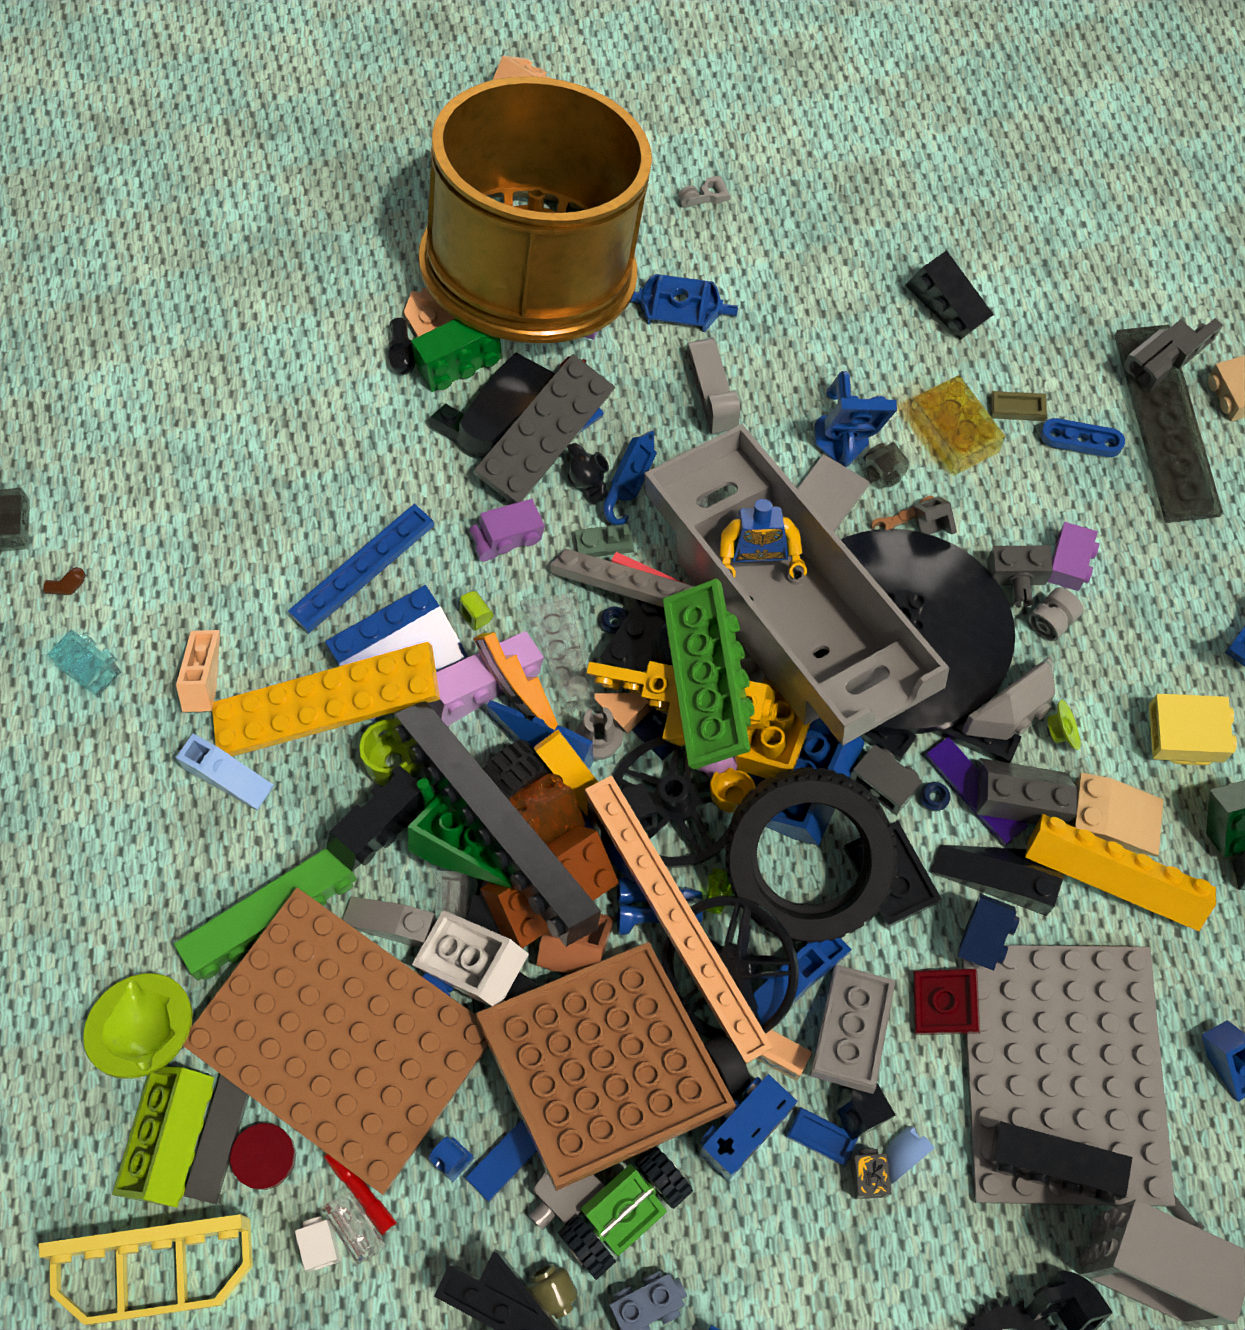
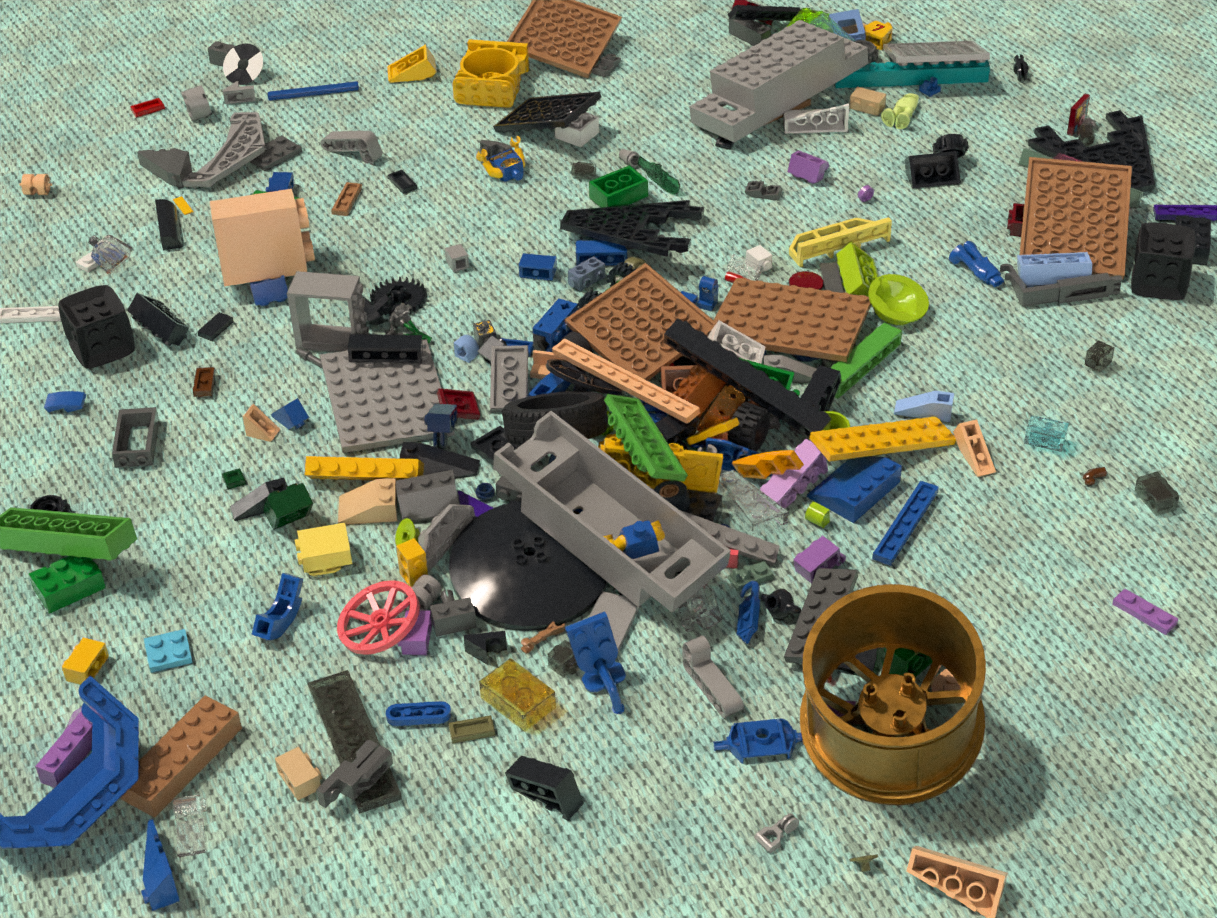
camera: 165 degrees right, 25 degrees down
(145, 357) = (1145, 611): none -> medium lavender plate
(935, 516) = (520, 628): dark grey panel -> none
(989, 515) = (480, 644): none -> black slope
(1023, 1233) = (400, 318): none -> dark grey plant
(1069, 656) = (411, 561): none -> yellow brick
(1120, 585) = (380, 620): none -> coral wheel

